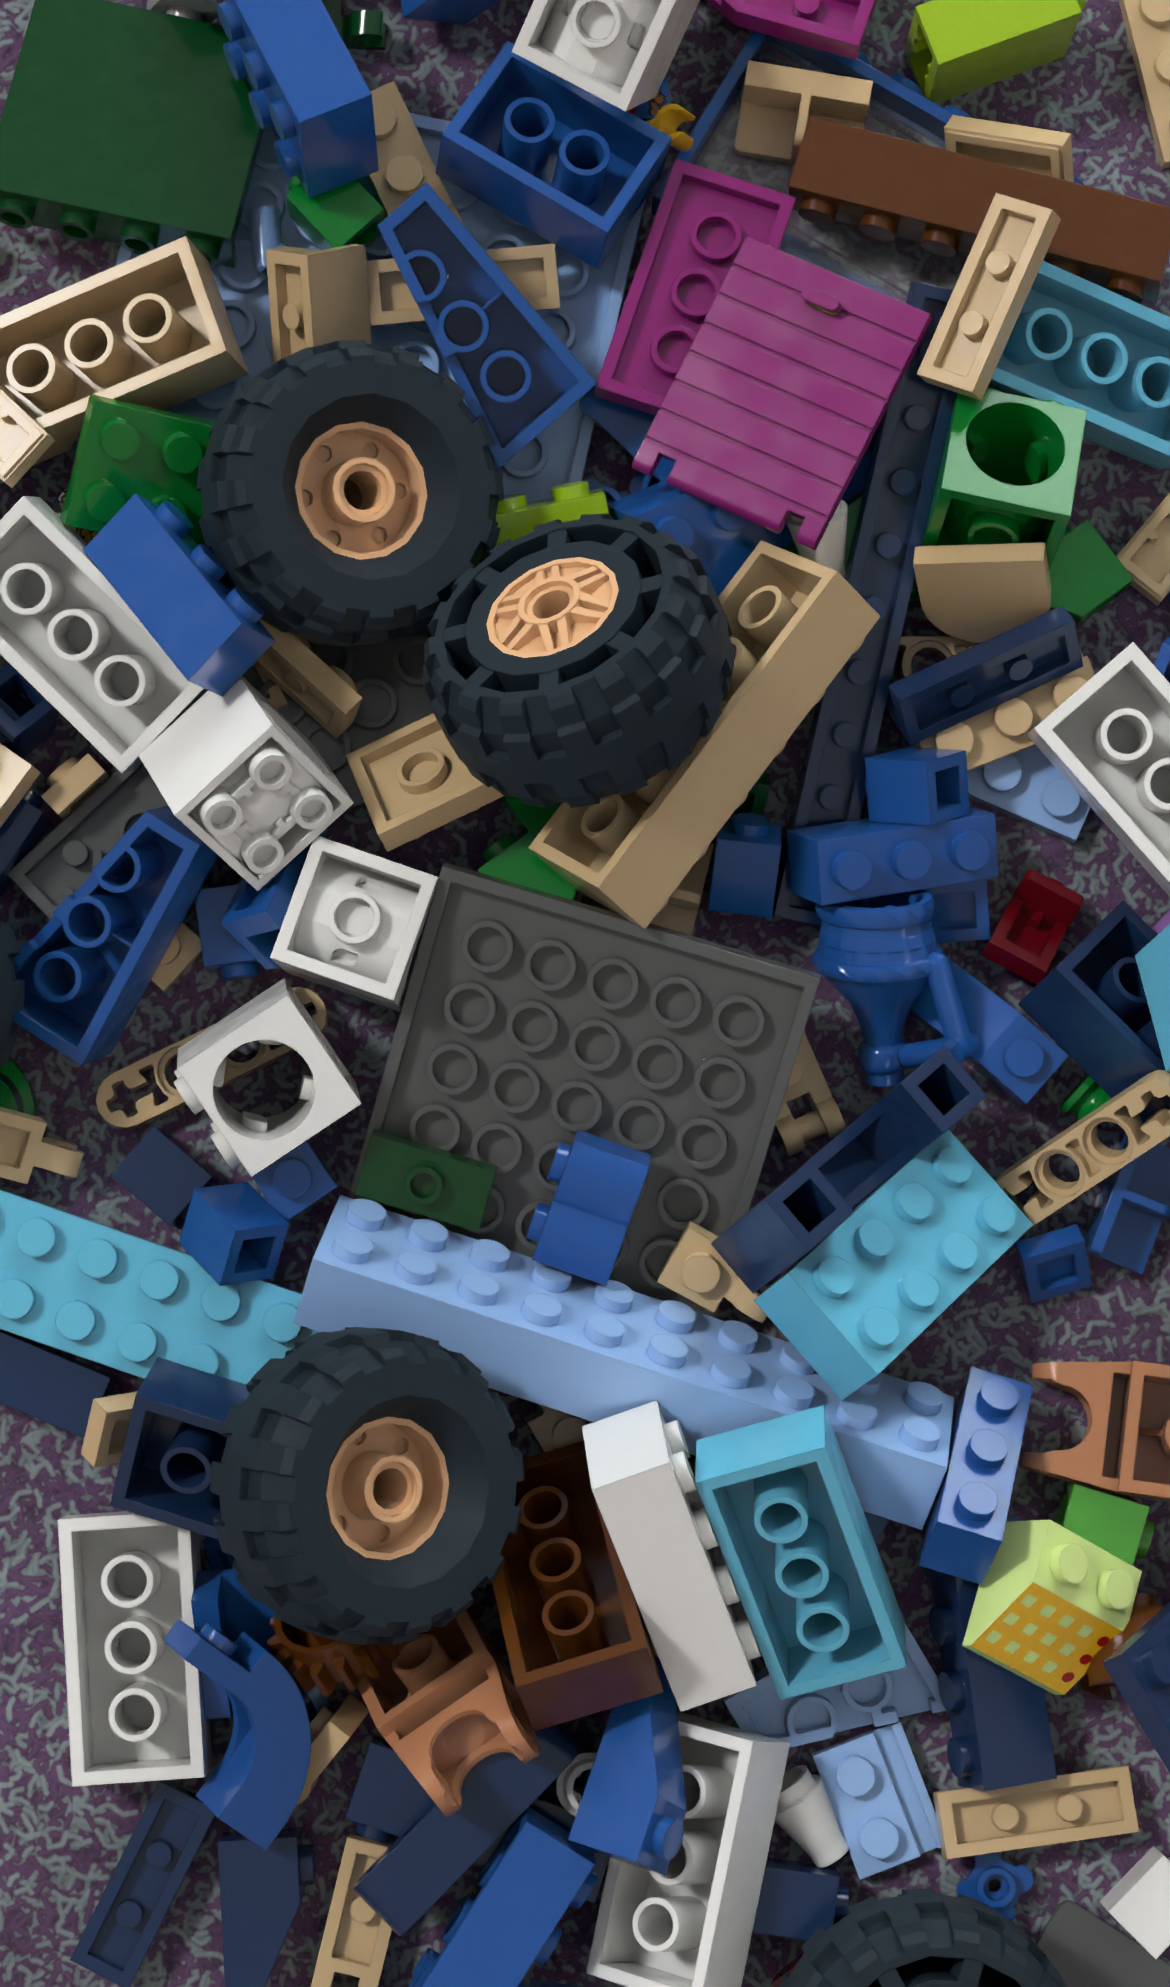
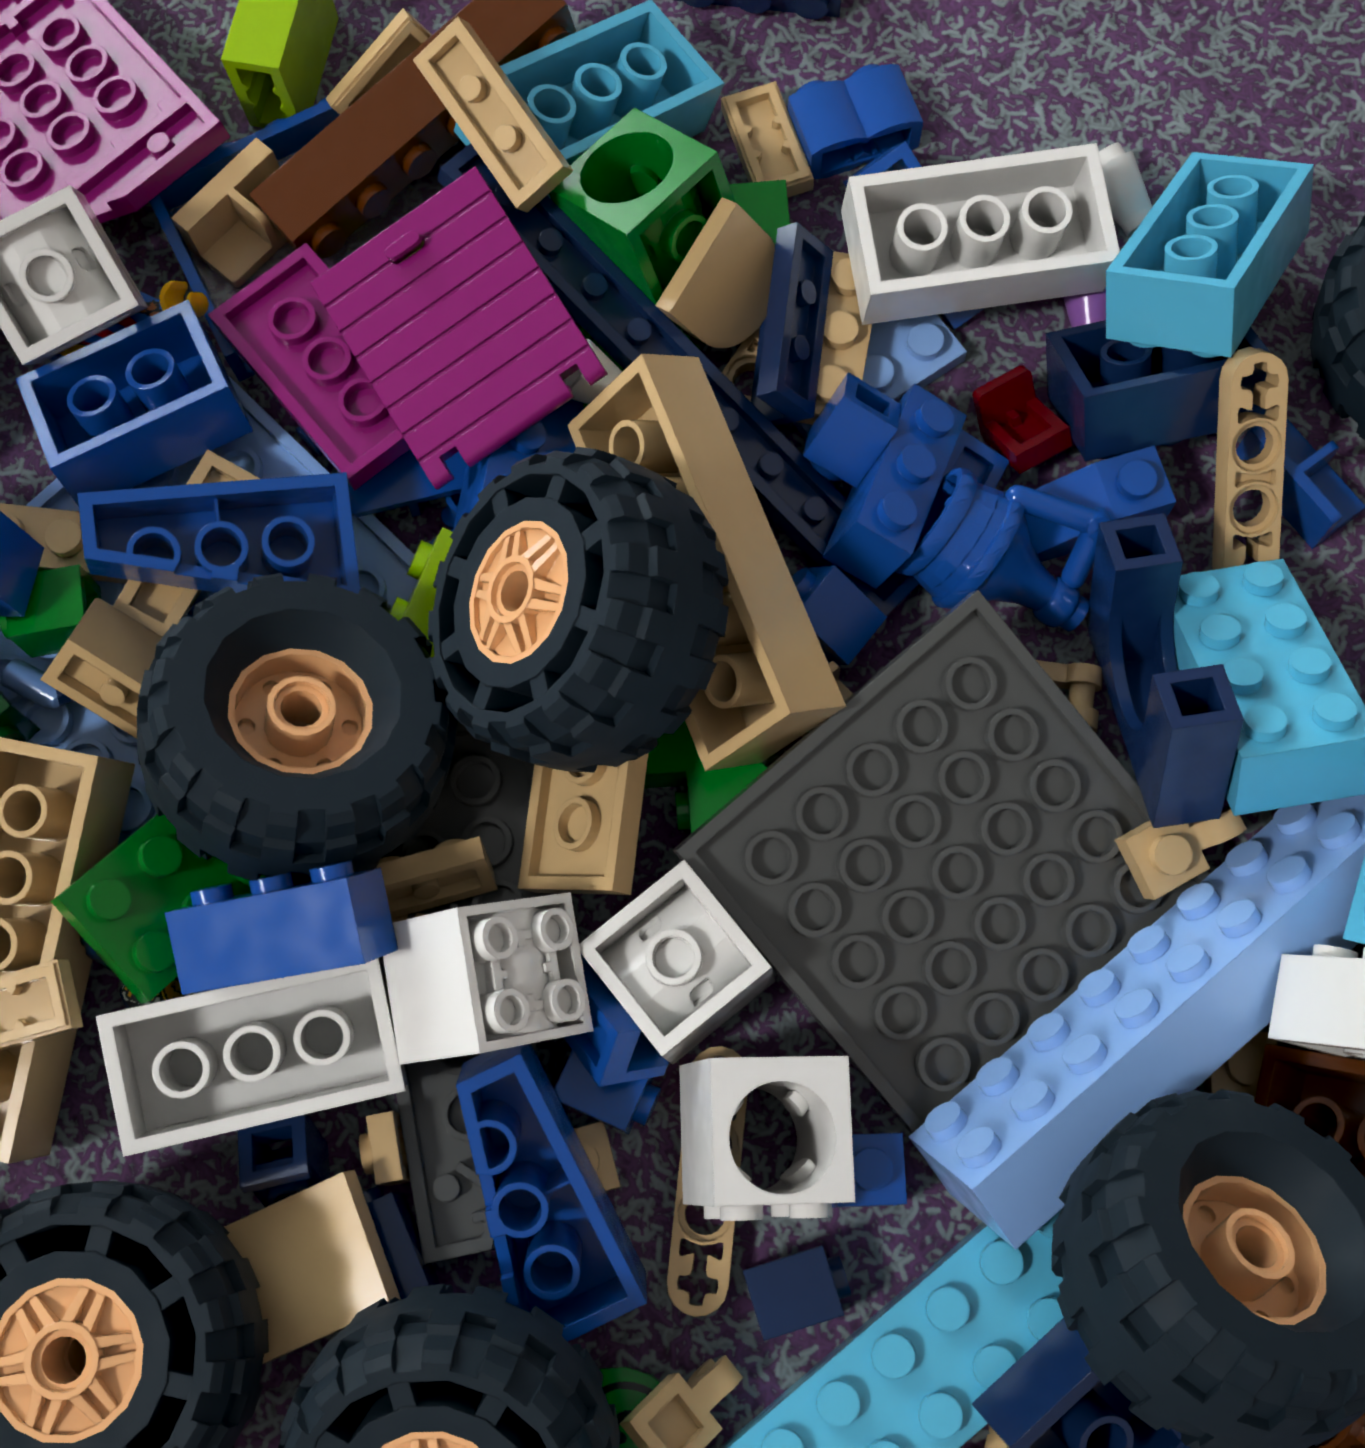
camera: 50 degrees left, 10 degrees down
(233, 1233) = (890, 1257): blue brick -> none
(425, 1180) = (943, 1049): dark green plate -> none
(590, 1206) = (1057, 914): blue brick -> none
(1053, 1263) = (1320, 568): blue plate -> none
(1084, 1098) = (1191, 463): green bush -> none

